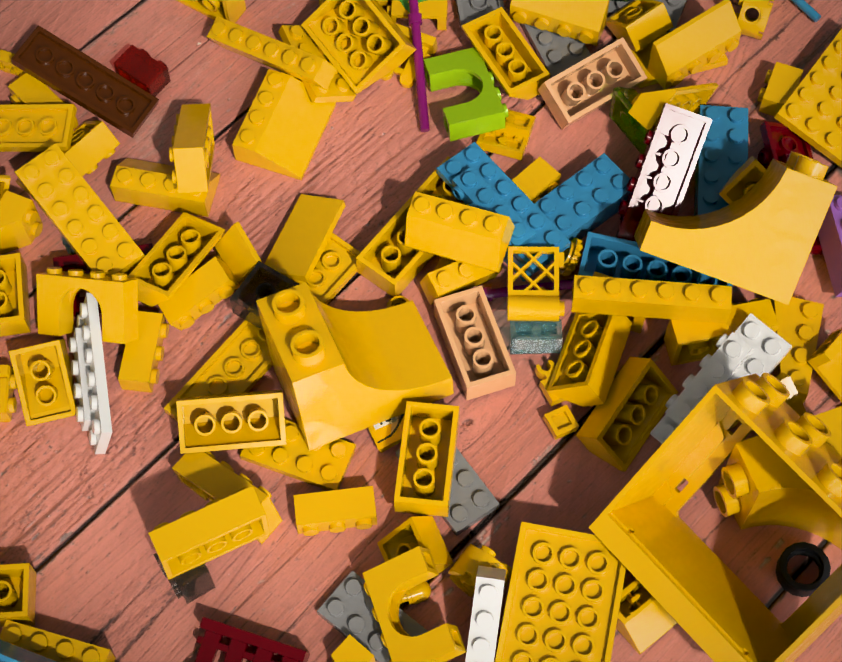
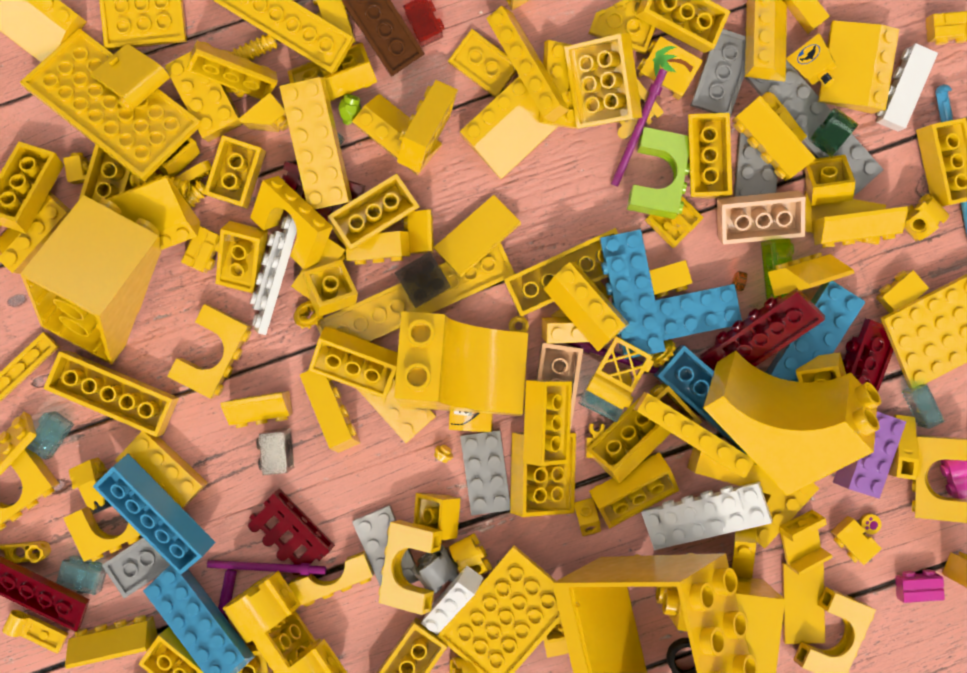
camera: 25 degrees right, 25 degrees up
(66, 530) = (233, 335): none -> yellow arch
(100, 182) = (349, 108): none -> lime rock
(126, 534) = (257, 409): none -> yellow slope
(153, 402) = (303, 312): none -> yellow gear
(165, 357) = (330, 288): none -> yellow slope
(209, 531) = (295, 456): yellow brick -> none
(224, 83) = (483, 63): none -> yellow tile
(335, 510) = (397, 459): yellow brick -> none
(385, 479) = (443, 453): none -> yellow plate
(426, 459) = (475, 462): yellow brick -> none
(447, 605) = (436, 569): none -> light grey brick
(483, 371) = (547, 422): none -> yellow slope
(512, 445) = (541, 488): none -> yellow slope
(561, 422) = (585, 473): yellow plate -> none
(592, 465) = (587, 516): none -> yellow bracket
(610, 151) = (739, 280): none -> clear orange tile

